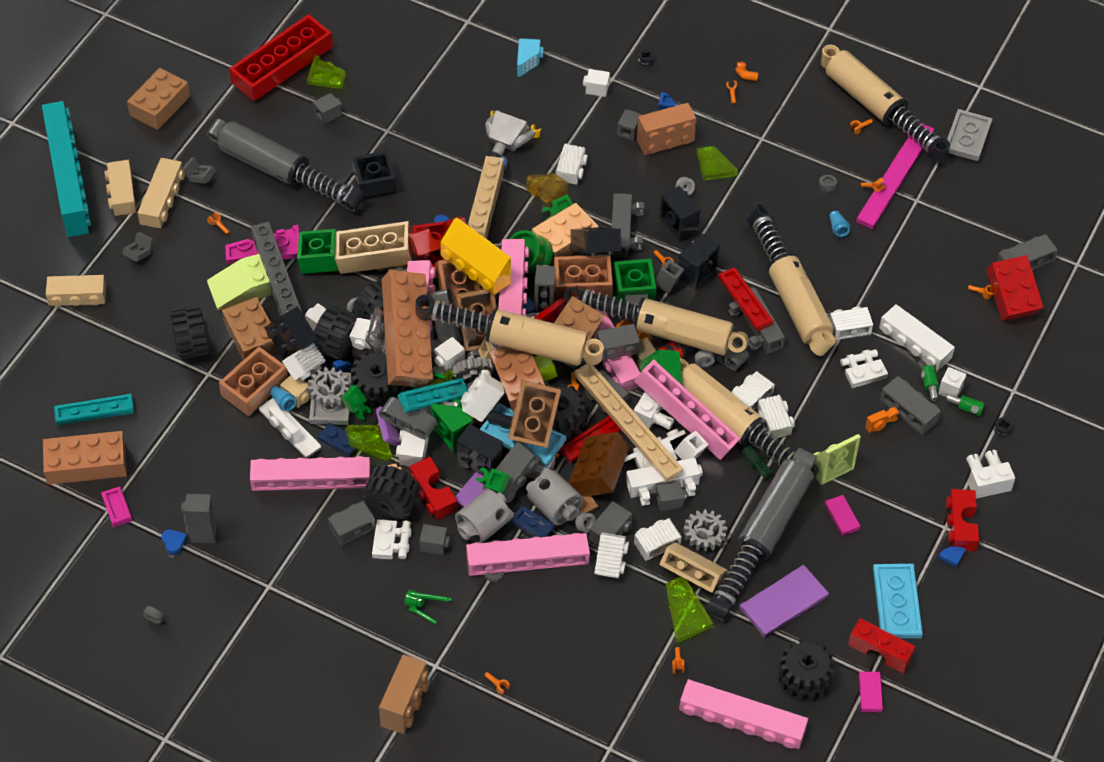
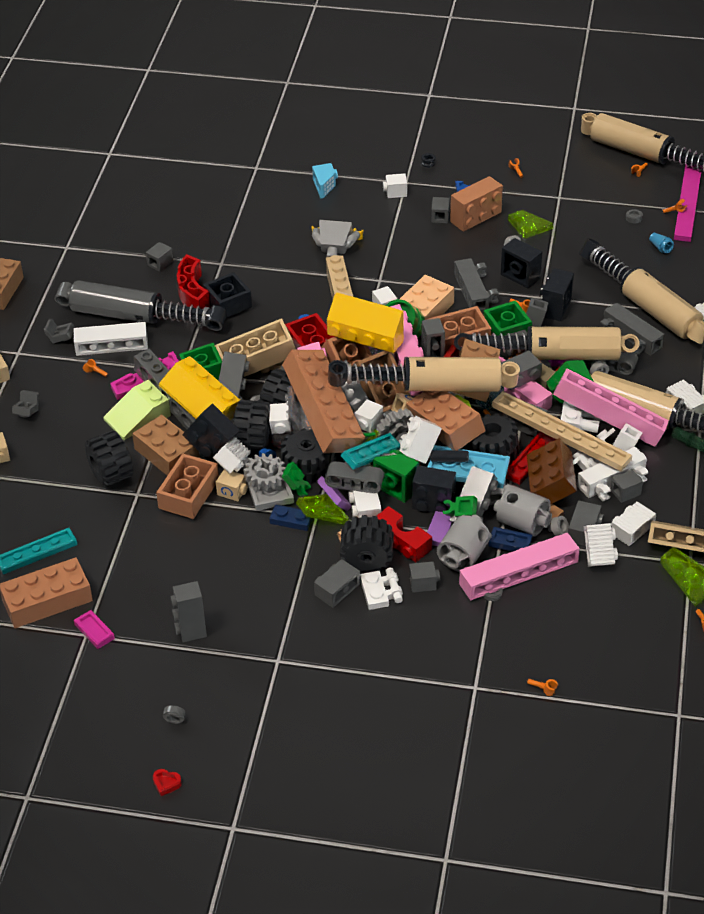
camera: 15 degrees left, 10 degrees down
(124, 678) = (166, 782): none -> red tile
(161, 193) = (29, 356): tan brick -> none
(173, 541) = (165, 644): blue tile -> none
(244, 193) = (110, 338): none -> white brick
(281, 57) = (99, 226): red brick -> none
(284, 399) = (223, 493): dark azure cone -> none
(290, 428) = (239, 518): white bracket -> none
(296, 283) = (197, 389): none -> yellow slope
(309, 473) = (277, 551): bright pink brick -> none
(325, 74) = (146, 232): clear neon green wing -> none
(335, 278) = (233, 371): none -> dark grey brick
(342, 143) = (189, 290): none -> red brick
(404, 694) = (462, 716): medium nougat brick -> none
(416, 599) = (430, 632): green plant -> none
(424, 243) = (305, 330): red arch -> none
(526, 218) = (383, 296): none -> white brick
(534, 413) = (478, 437): medium nougat brick -> none
(547, 186) = (390, 272): clear yellow slope -> none
(558, 205) = (407, 283): green plate -> none
(571, 163) = (403, 250): white brick -> none
(595, 240) = (459, 296): black brick -> none
(704, 531) = (673, 505): light grey gear -> none
(744, 73) = (521, 153): orange arm -> none
(745, 299) = (615, 312): red tile -> none
(753, 389) = (658, 379): white brick -> none

